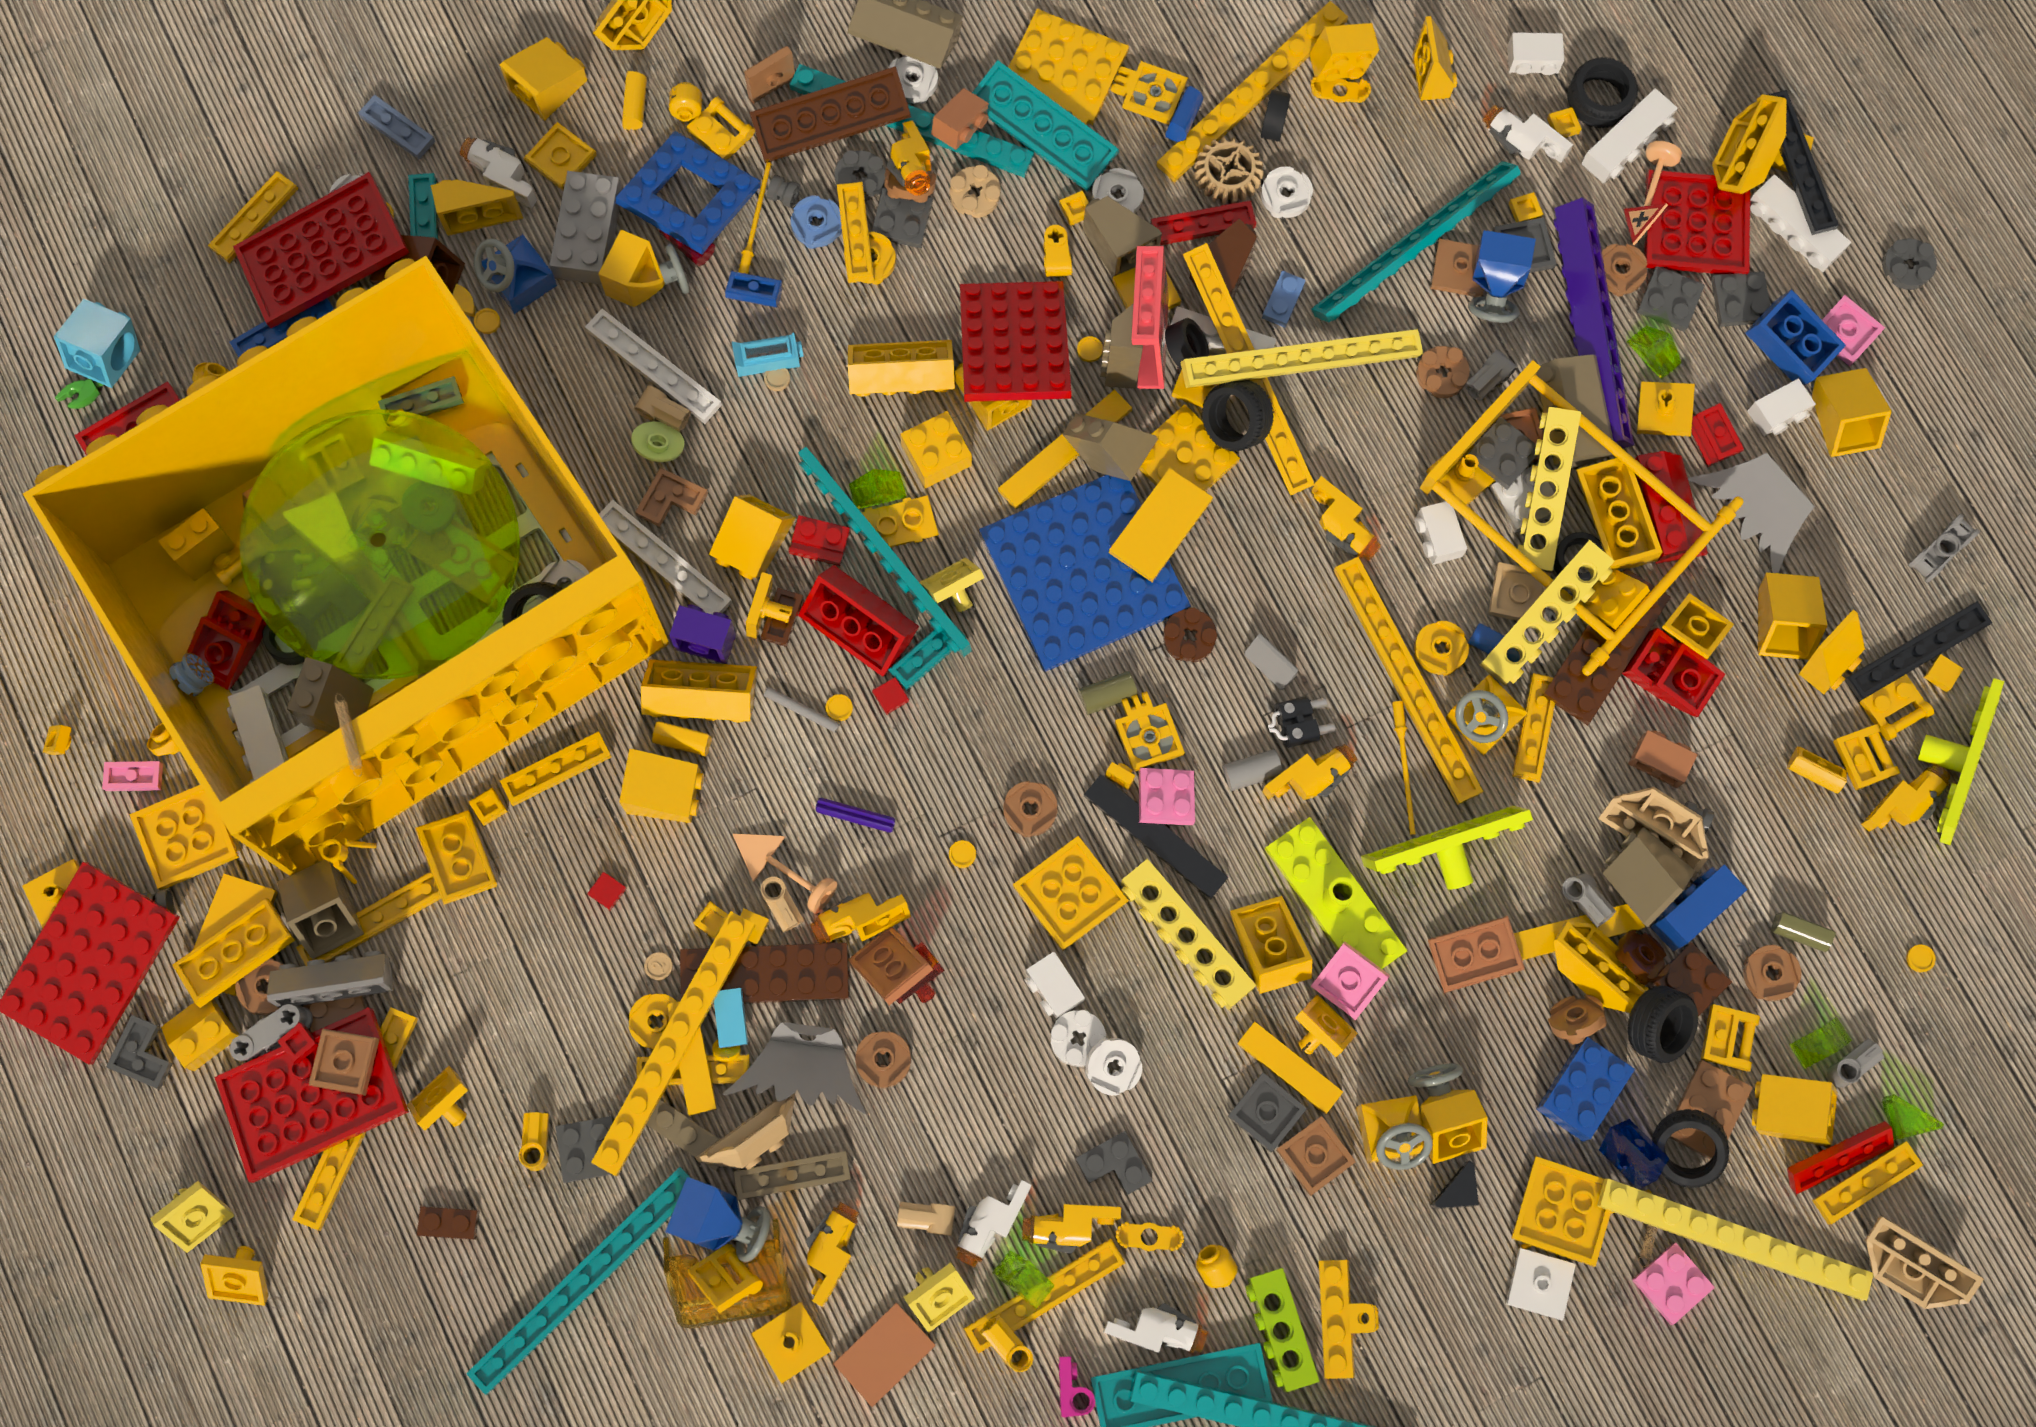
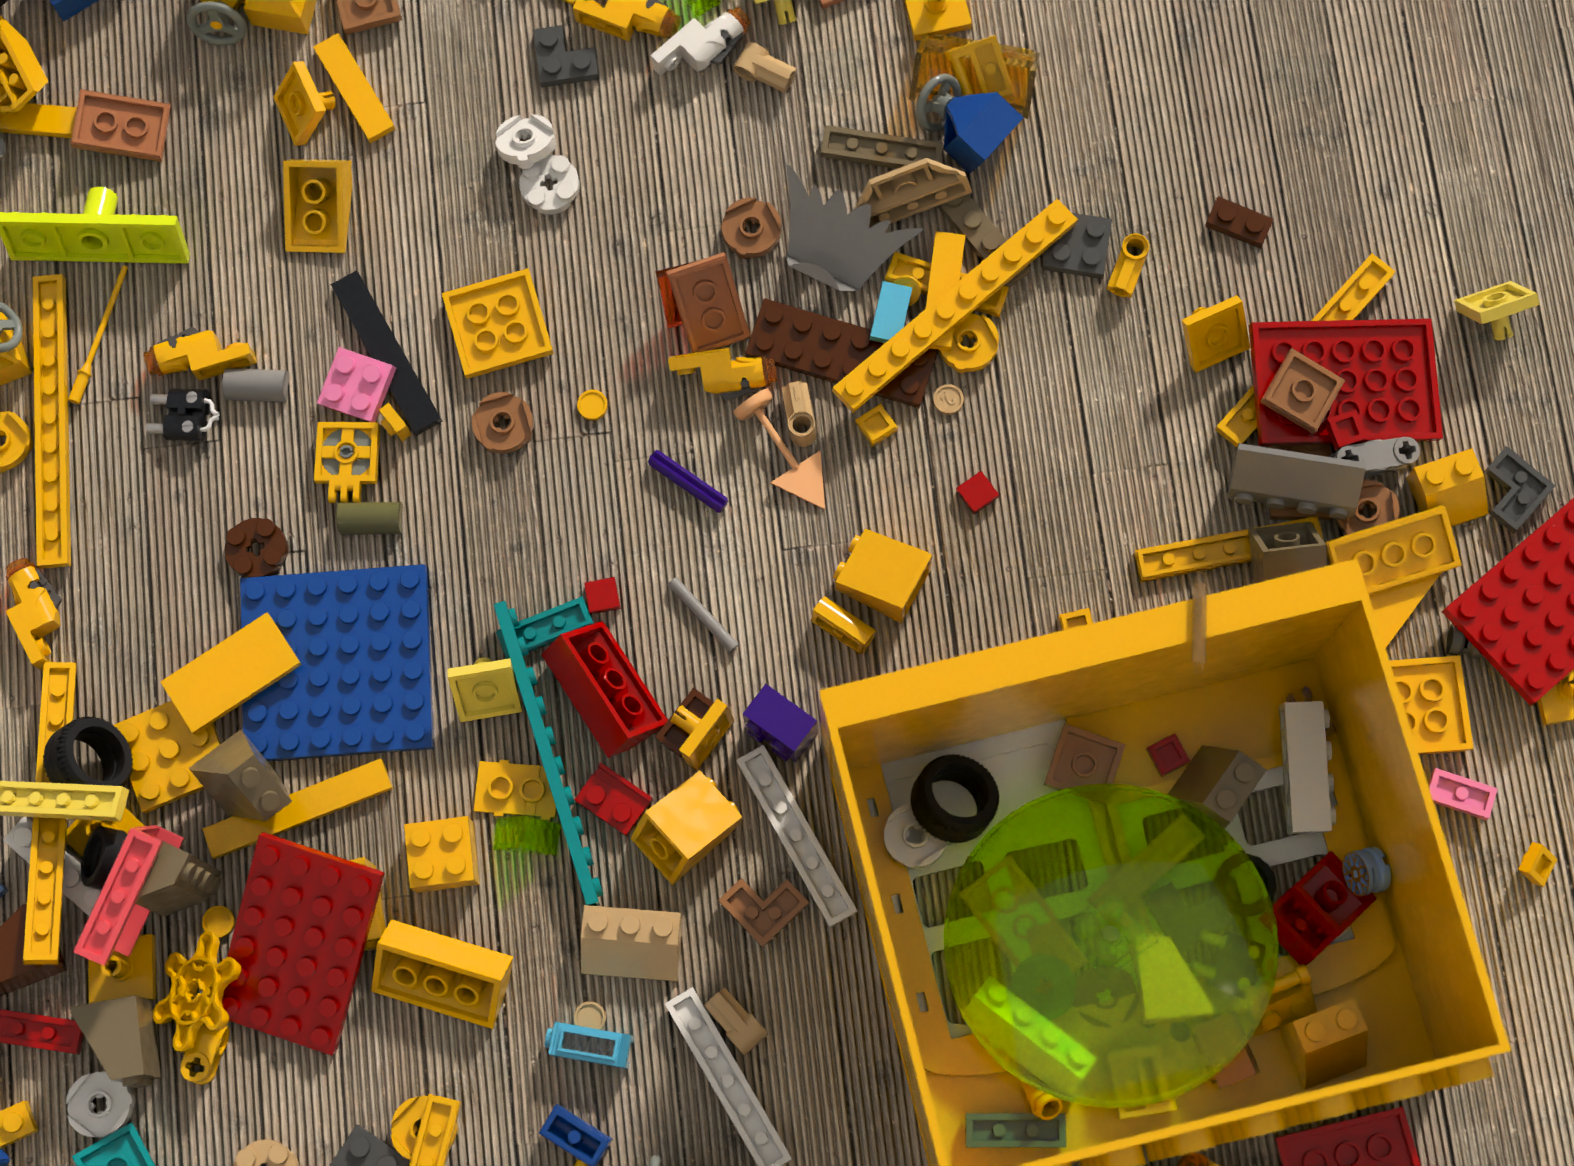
camera: 150 degrees left, 0 degrees up
(235, 1278) = (1464, 232): yellow tile -> none
(456, 857) = (1126, 574): yellow tile -> none
(555, 768) = (974, 638): yellow plate -> none
(578, 1285) = (1117, 123): teal plate -> none
(657, 441) = (743, 985): yellowish green dish -> none
(698, 690) = (798, 663): yellow slope -> none
(760, 922) = (835, 409): yellow tile -> none
(763, 439) = (631, 943): none -> tan slope
(826, 1250) = (870, 67): yellow plate -> none
(839, 707) = (662, 604): yellow piece -> none
(1054, 986) = (551, 237): white brick -> none
(1074, 207) = (156, 1106): yellow tile -> none
(1087, 276) = (186, 977): none -> yellow plate
(1185, 919) = (371, 174): light yellow brick -> none
(1267, 1112) = (395, 52): dark grey plate -> none
(1271, 662) = (184, 488): light grey slope -> none
(1314, 874) = (233, 229): neon yellow plate -> none
(1350, 980) = (256, 140): bright pink plate -> none
(1589, 1018) = (62, 16): medium nougat plate -> none

